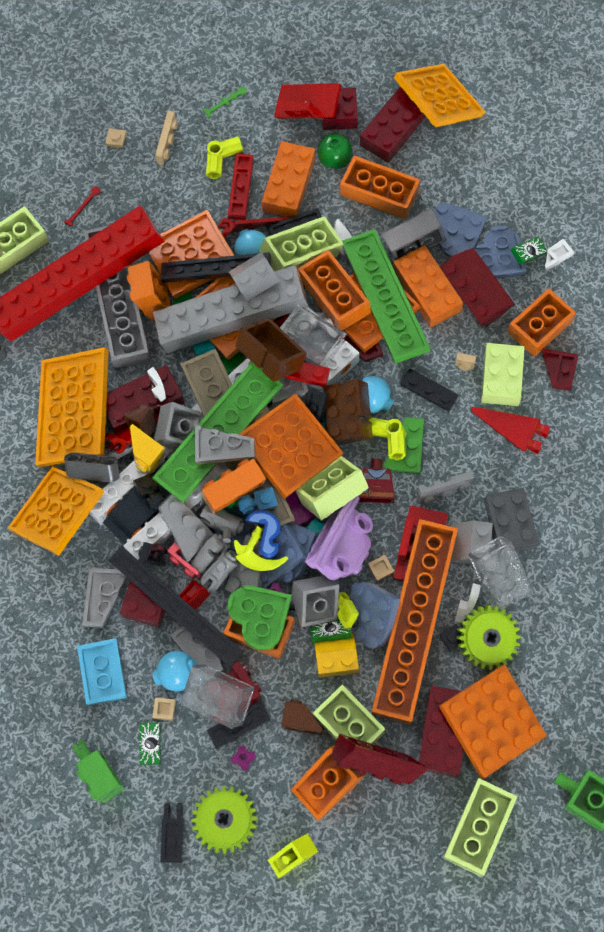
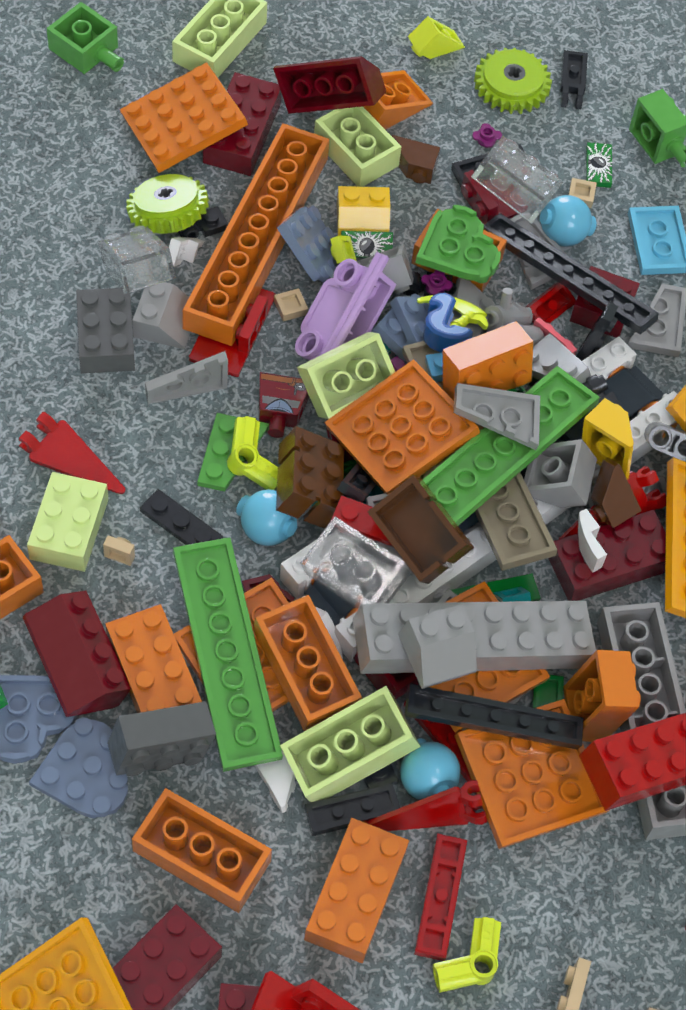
camera: 175 degrees right, 10 degrees down
(334, 151) = (268, 943): green cylinder -> none

